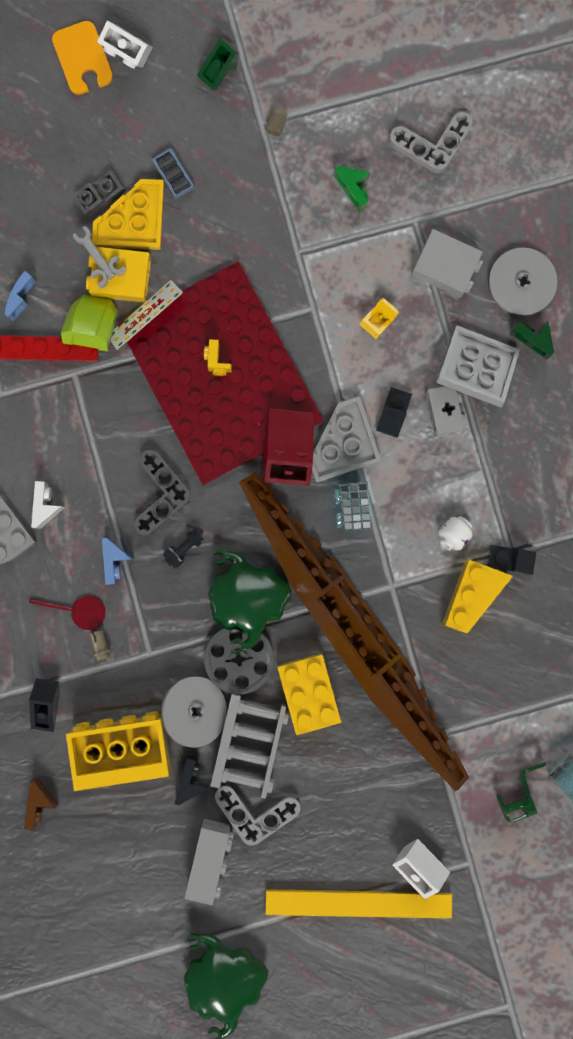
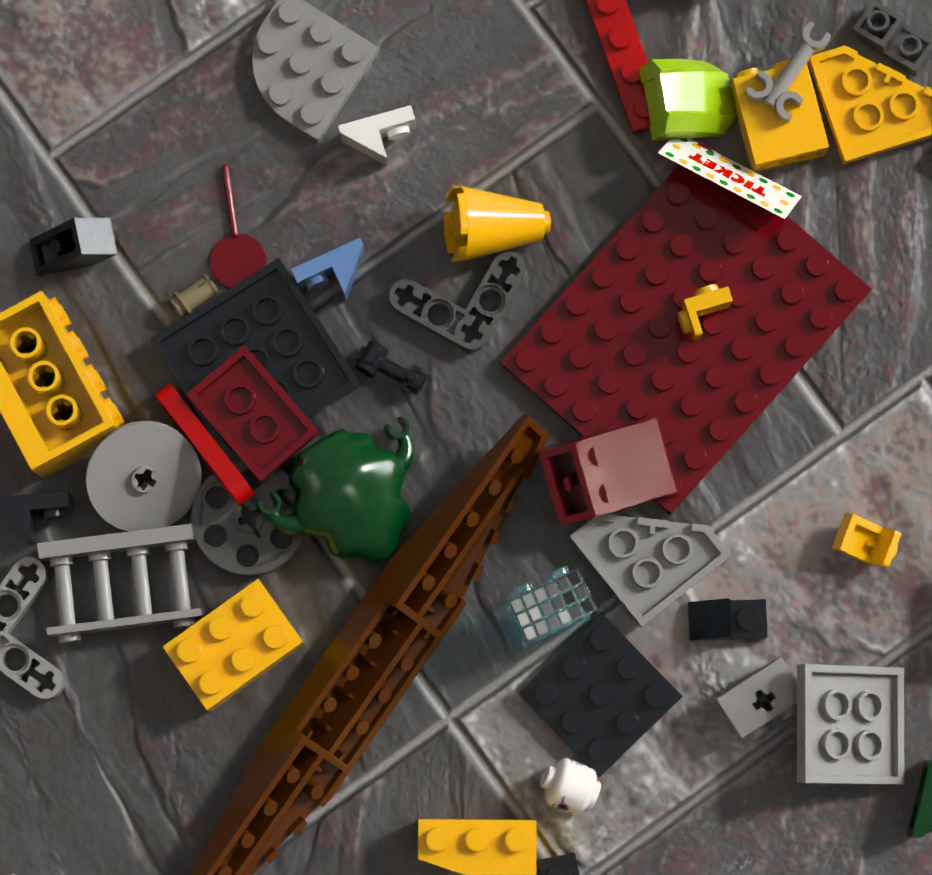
camera: 80 degrees right, 5 degrees down
(120, 461) = (490, 223): none -> yellow cone
(150, 624) = (277, 328): none -> black plate
(181, 636) = (252, 413): none -> dark red plate
(188, 670) = (204, 444): none -> red beam
(410, 498) = (600, 695): none -> black plate

